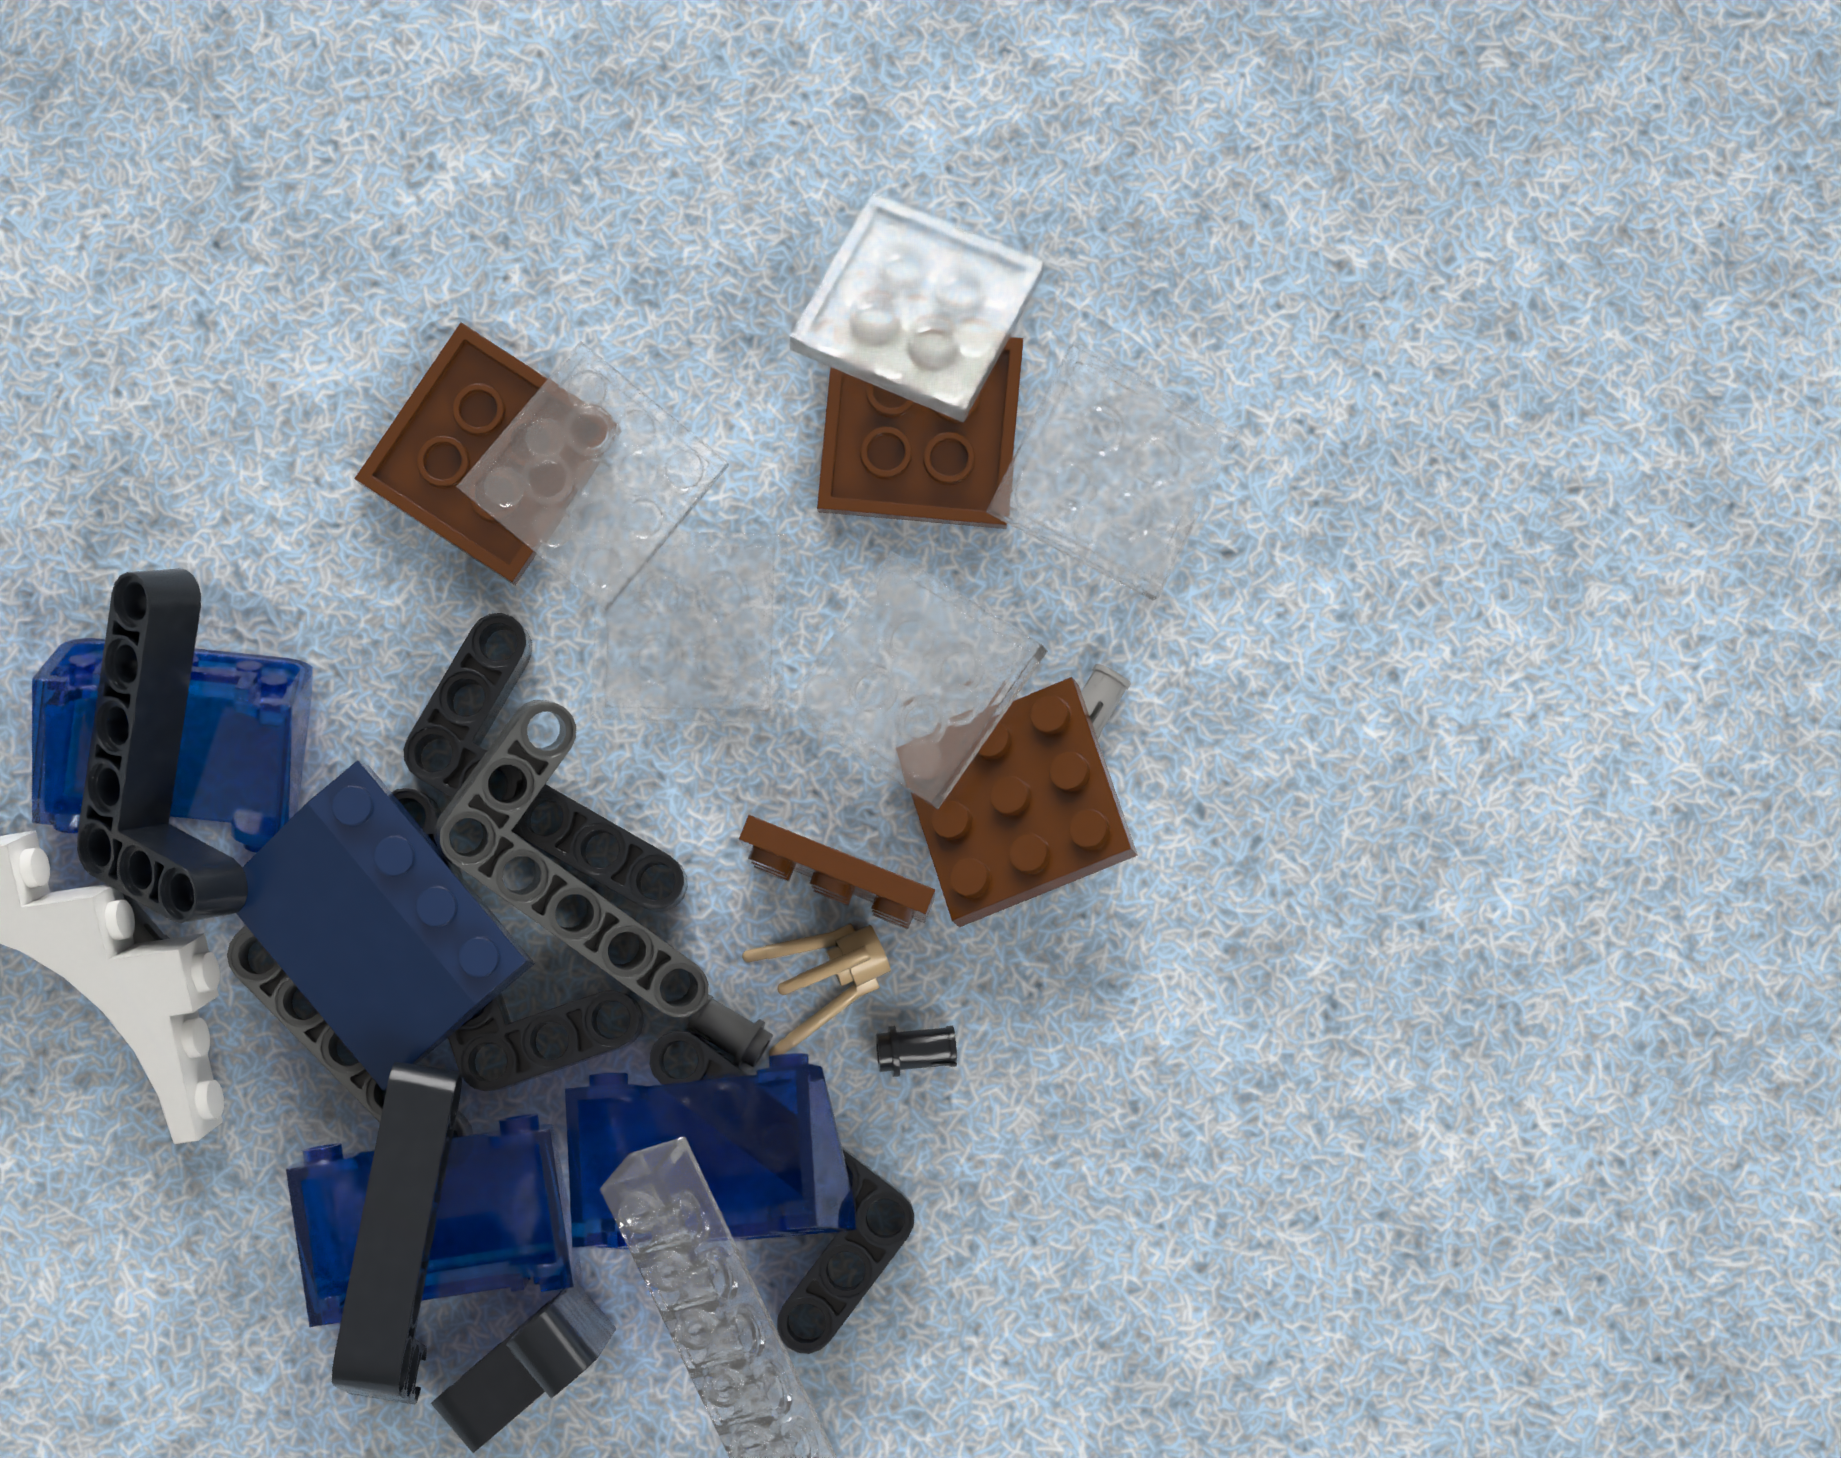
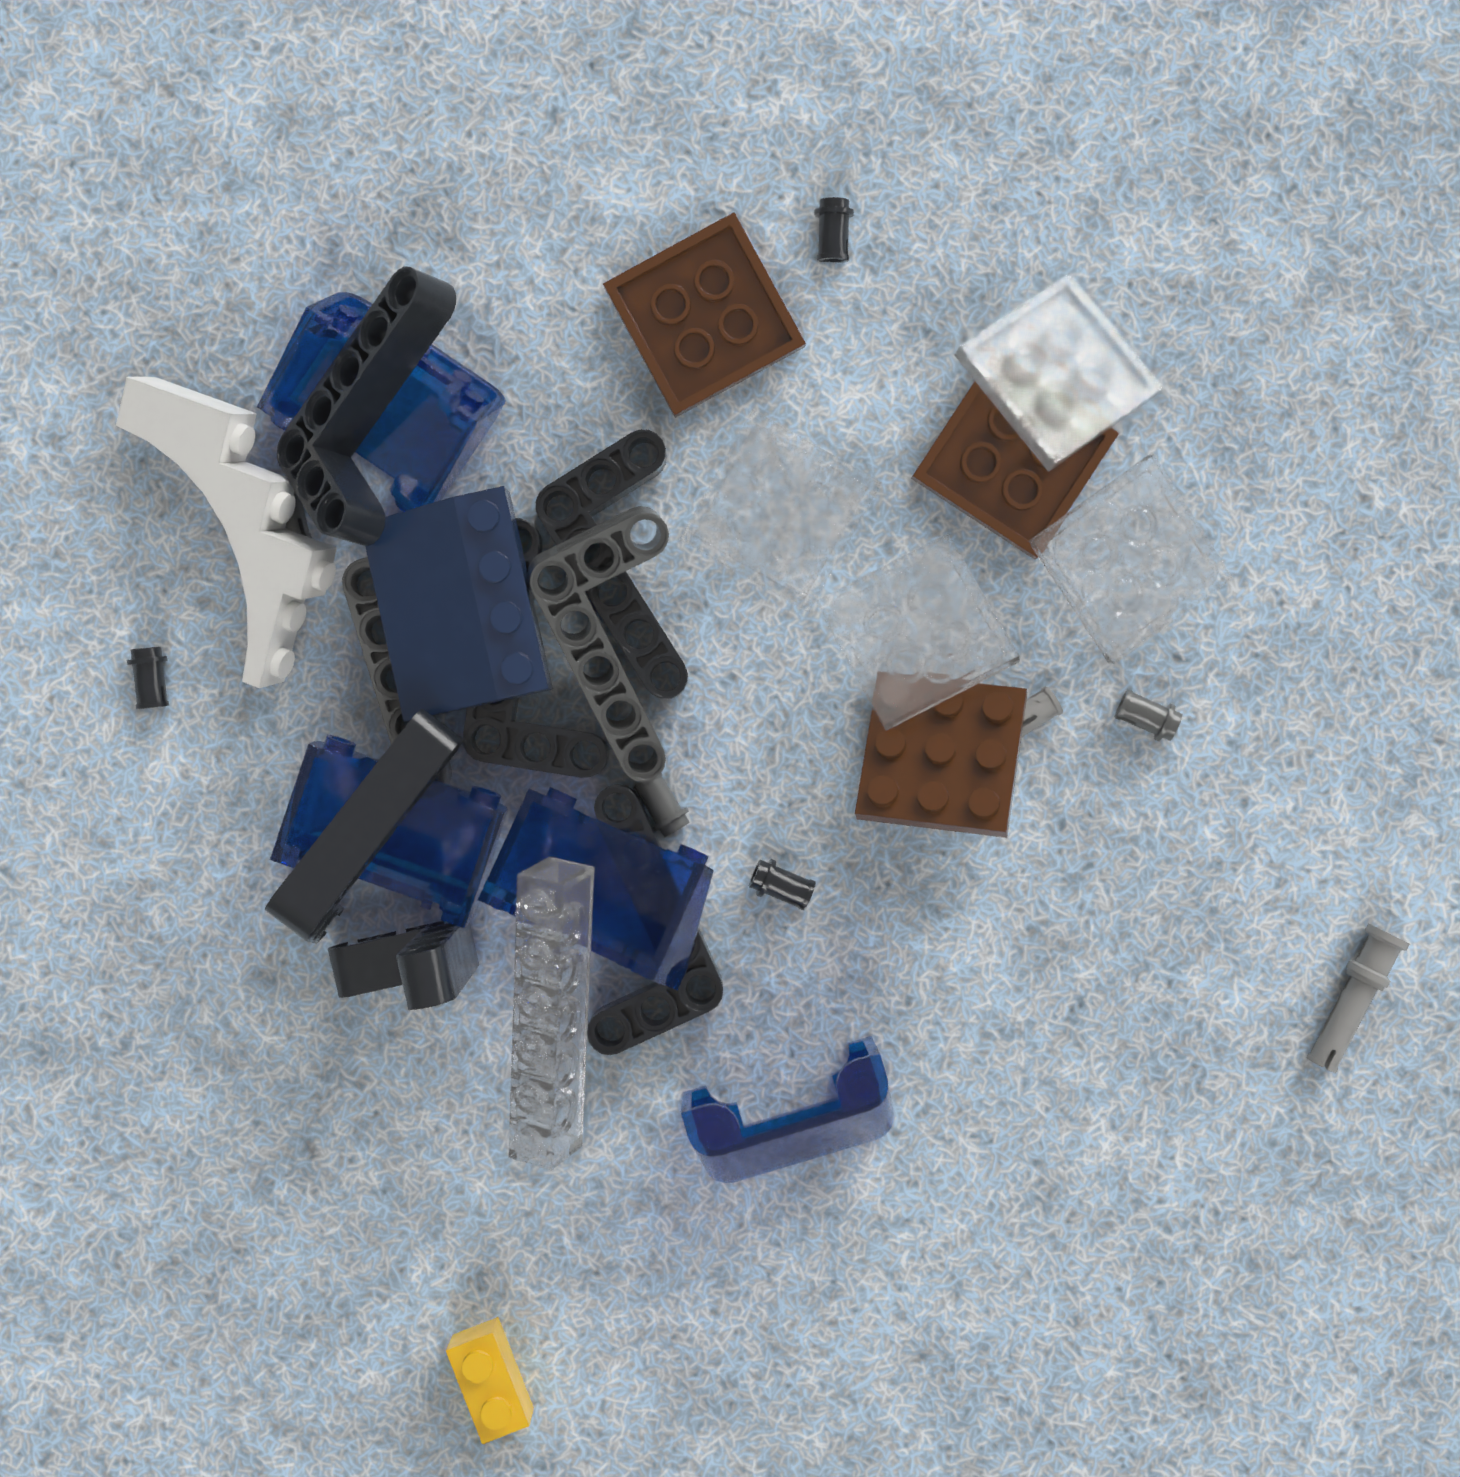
camera: 25 degrees right, 5 degrees up
(63, 1198) = (149, 677): none -> black pin
(583, 282) = (833, 229): none -> black pin
(593, 475) = (770, 370): clear plate -> none
(835, 873) = (794, 741): reddish brown plate -> none
(854, 959) = (773, 801): tan plant -> none
(1033, 1385) = (745, 1151): none -> clear blue windscreen
(1230, 634) = (1149, 715): none -> dark grey pin
(1638, 796) = (1366, 976): none -> light grey pin

